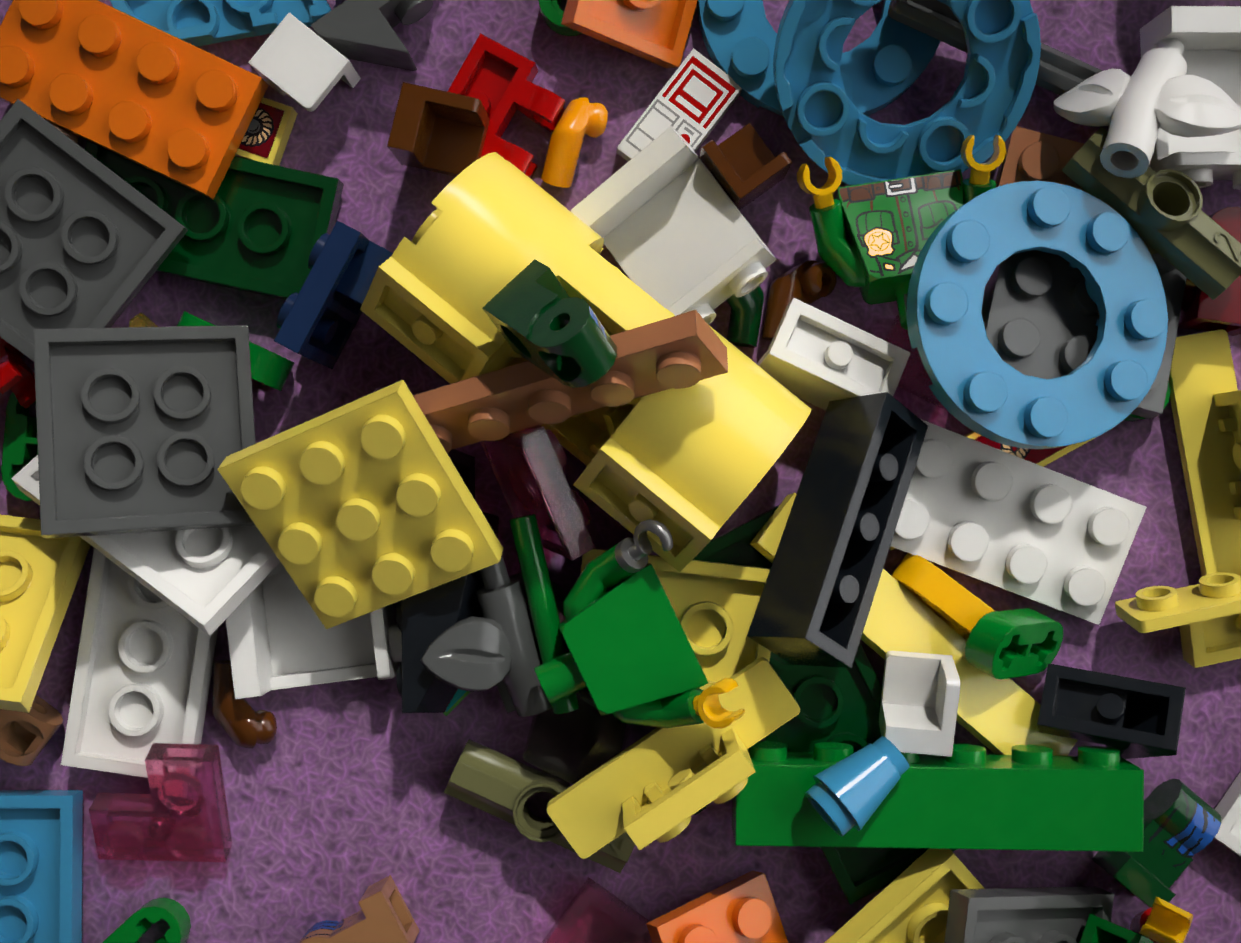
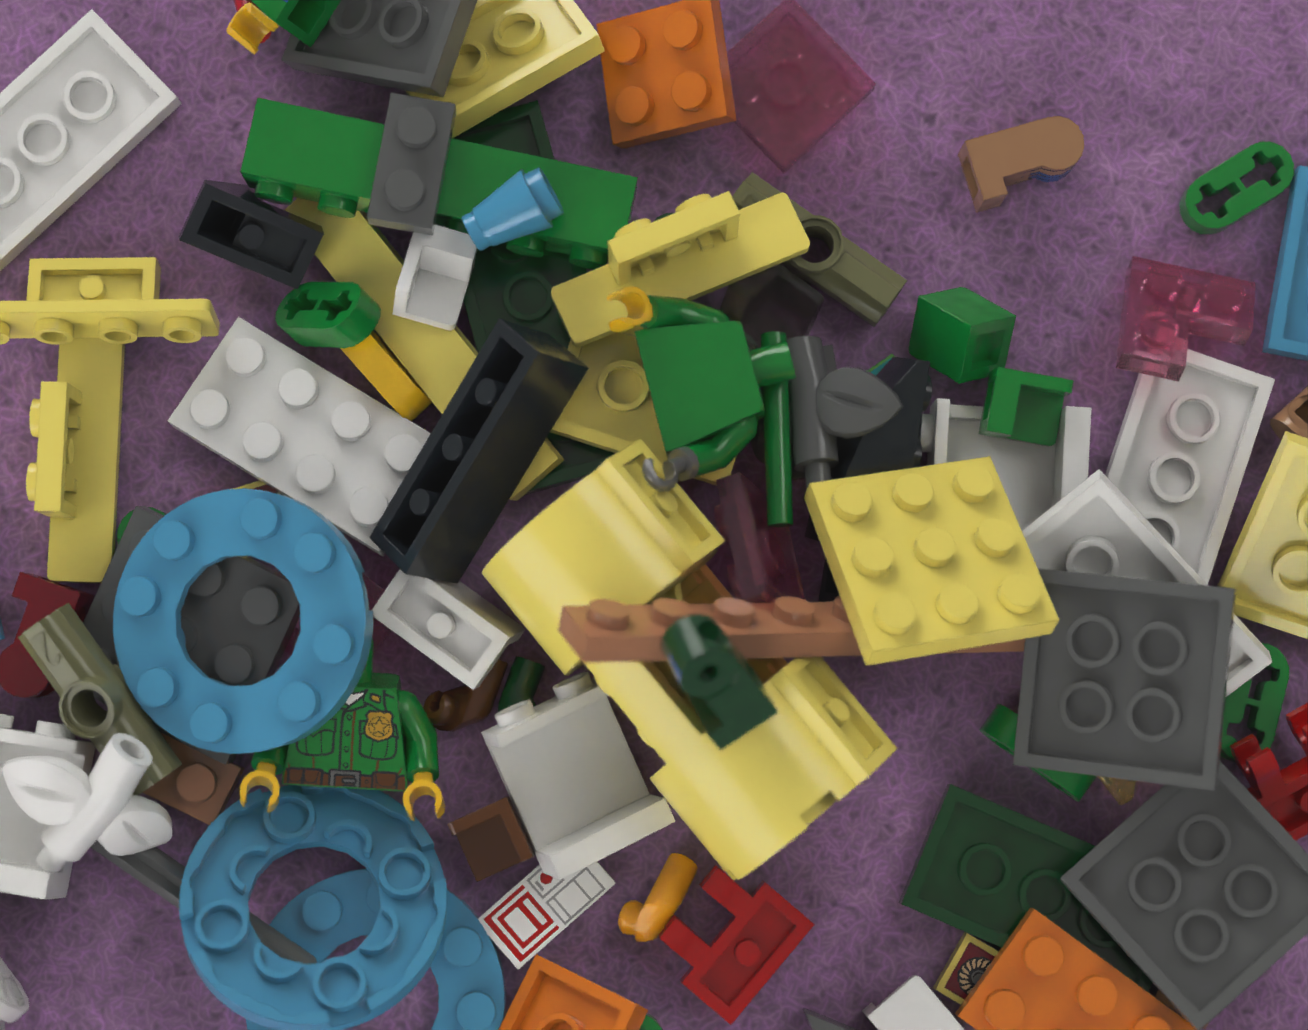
camera: 170 degrees left, 5 degrees down
(237, 715) = (1101, 396): reddish brown arm -> none
(305, 688) = (1023, 406): none -> green panel
(329, 303) = (906, 799): dark blue plate -> none
(381, 748) = (961, 334): none -> green panel
(437, 129) = (790, 924): reddish brown panel -> none
(971, 813) = (411, 164): none -> dark grey plate
(1174, 830) = (225, 100): dark green leg -> none

